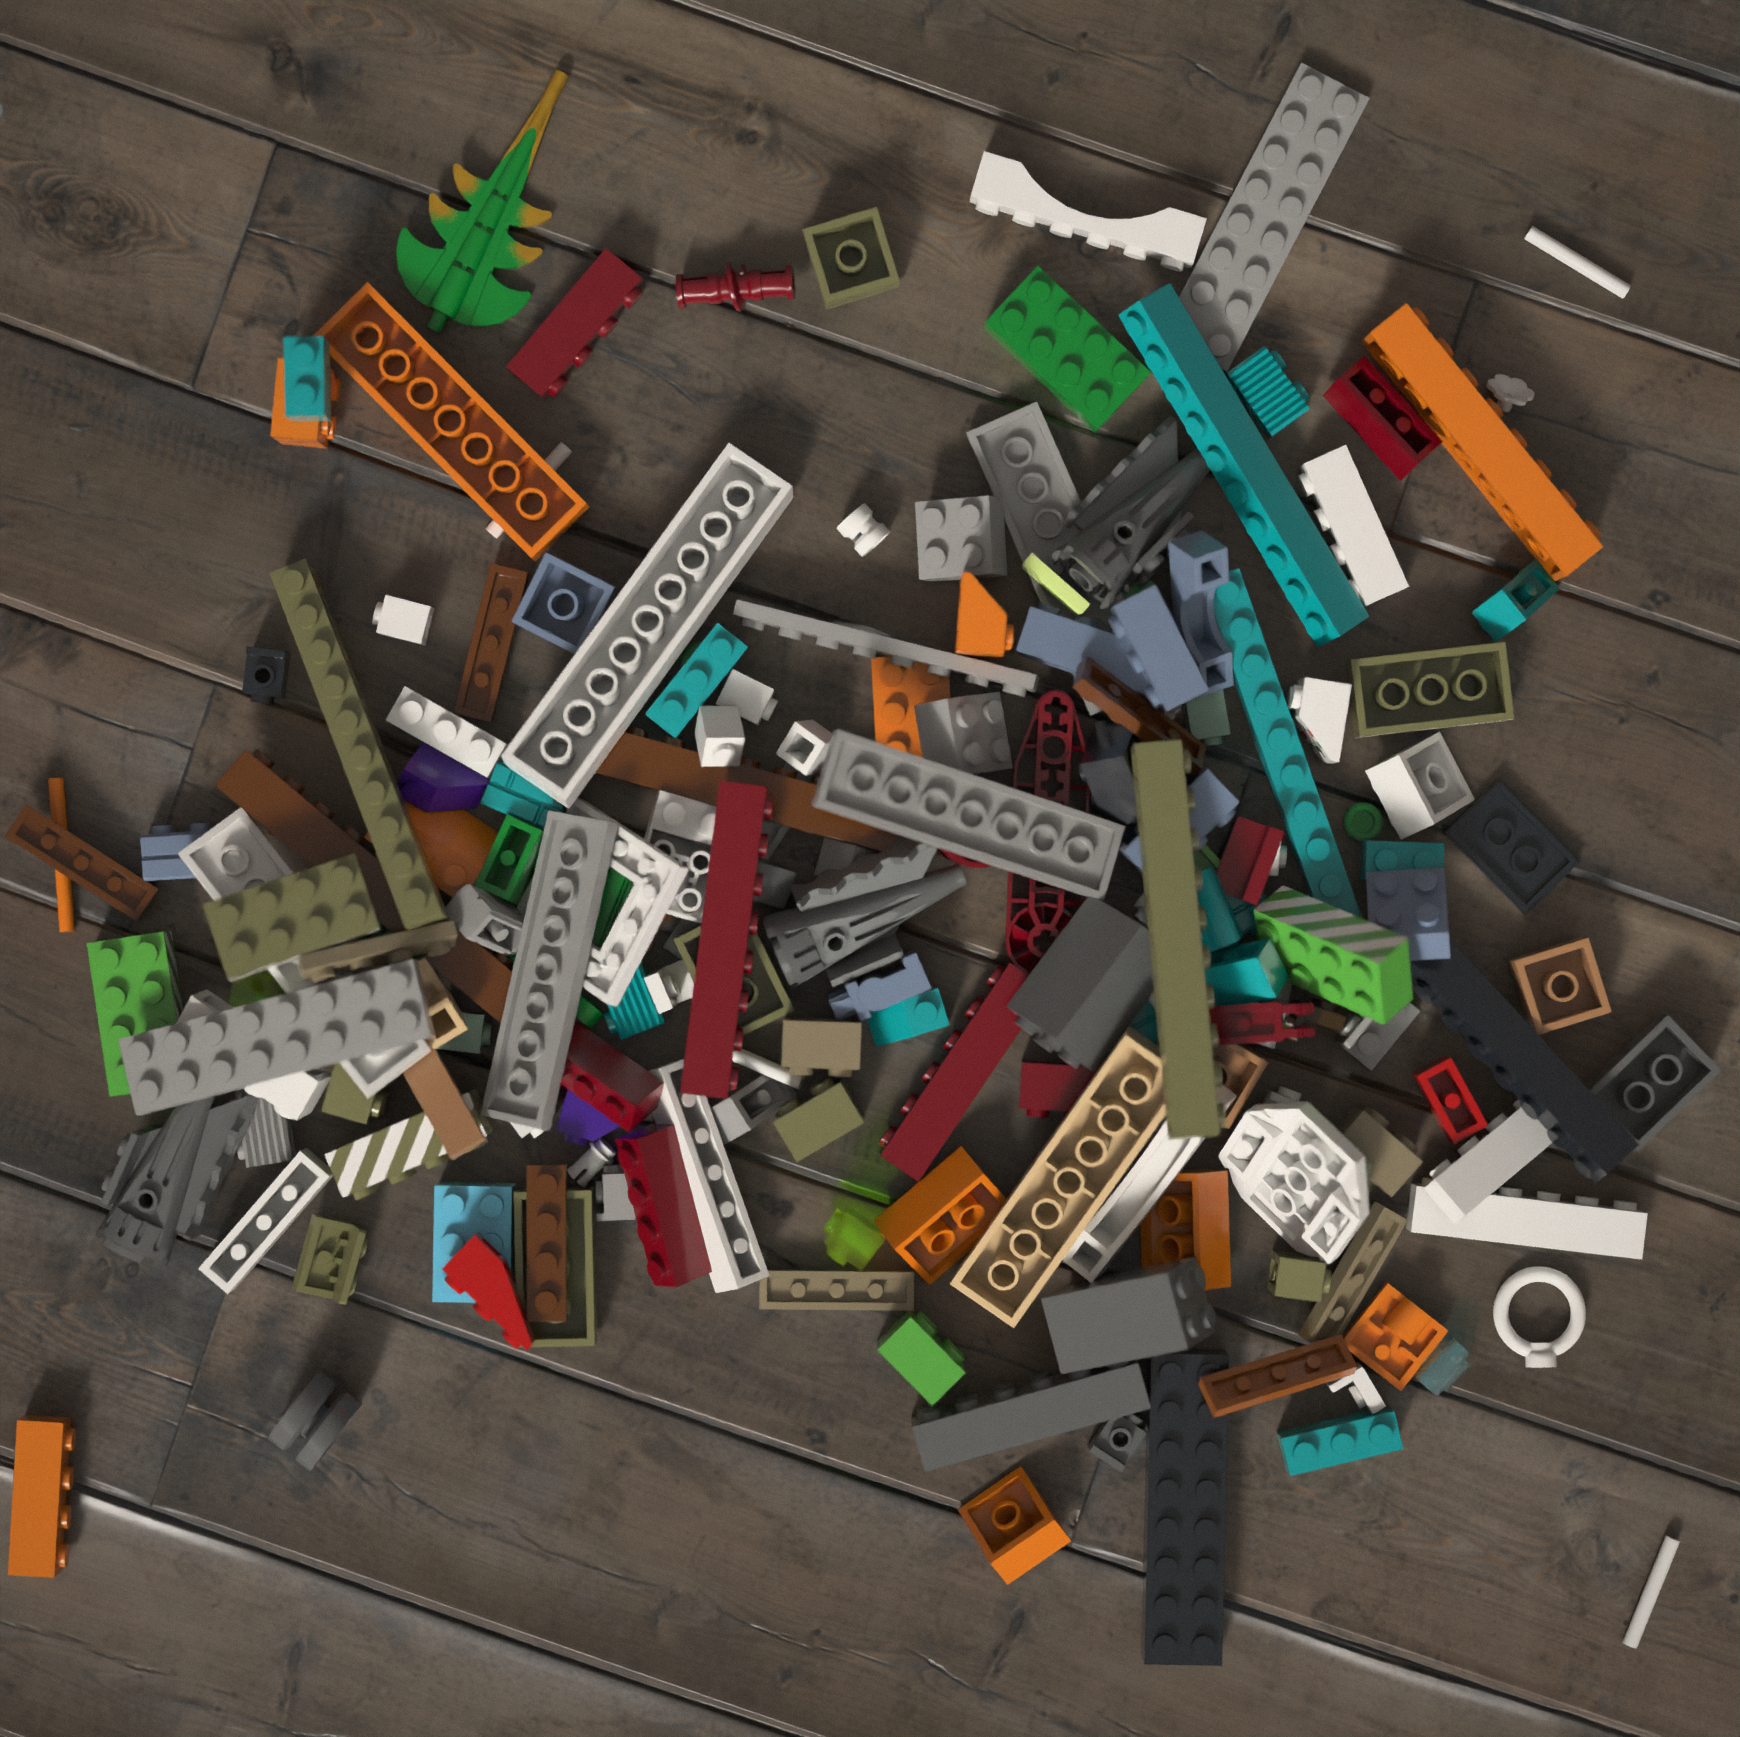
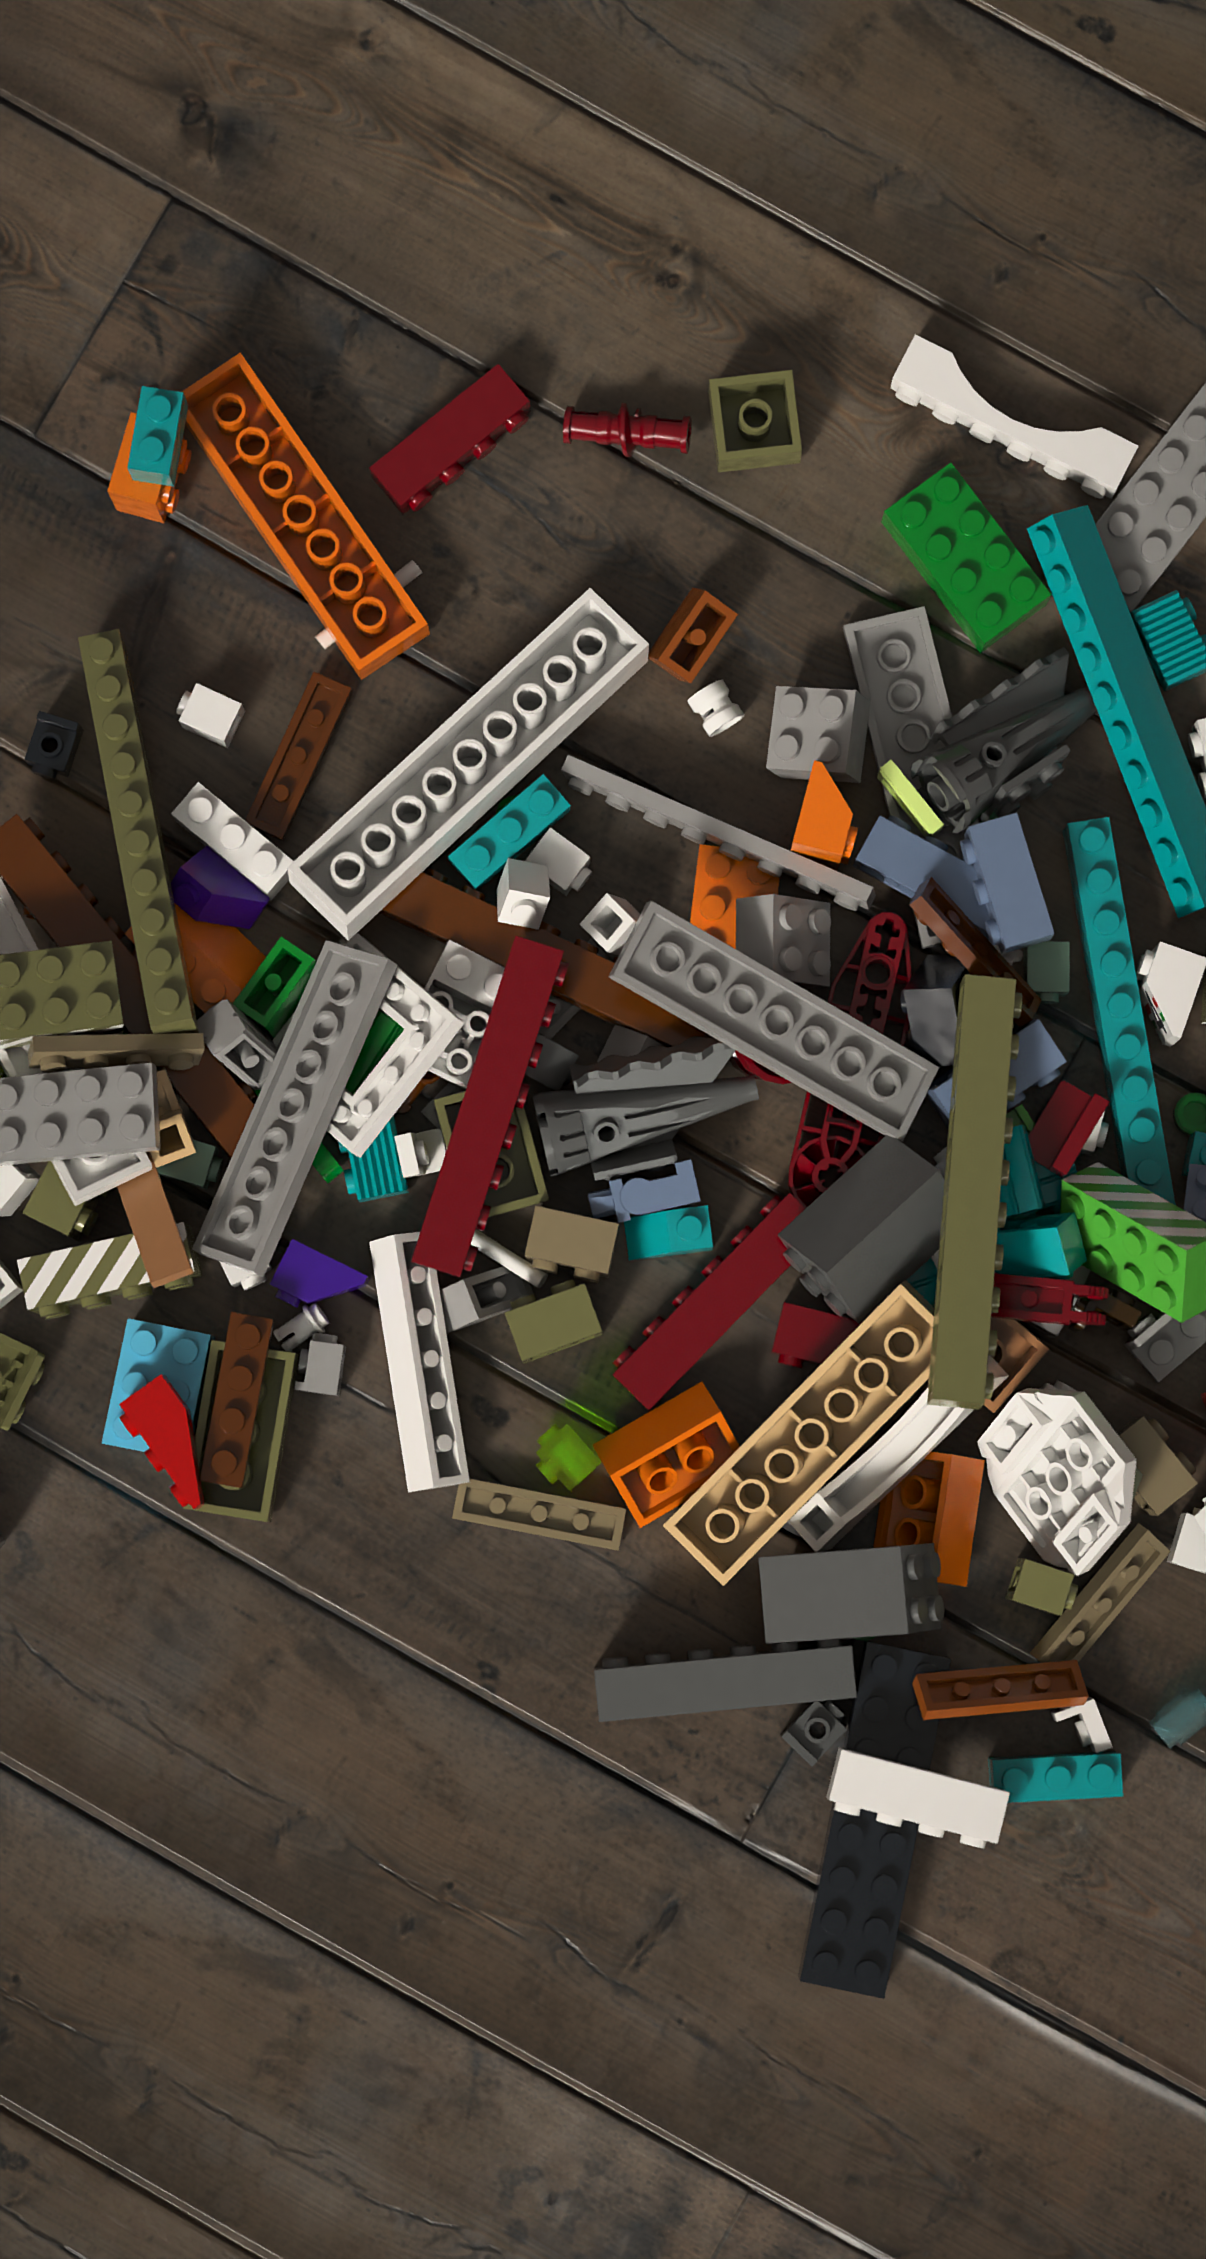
camera: 10 degrees right, 5 degrees down
(459, 276) = (337, 369): green animal -> none
(518, 797) = (297, 921): teal brick -> none
(564, 603) = (382, 724): sand blue brick -> none
(609, 1079) = (337, 1238): dark red brick -> none
(663, 1205) = (369, 1385): dark red brick -> none
(829, 467) = (691, 635): none -> dark orange brick
(921, 1355) = (618, 1600): bright green brick -> none
(1014, 1525) = (685, 1805): orange slope -> none
(1196, 571) = (1063, 808): sand blue arch -> none
(1220, 1485) = (918, 1796): none -> white brick
(1393, 1336) = (1134, 1674): orange plate -> none

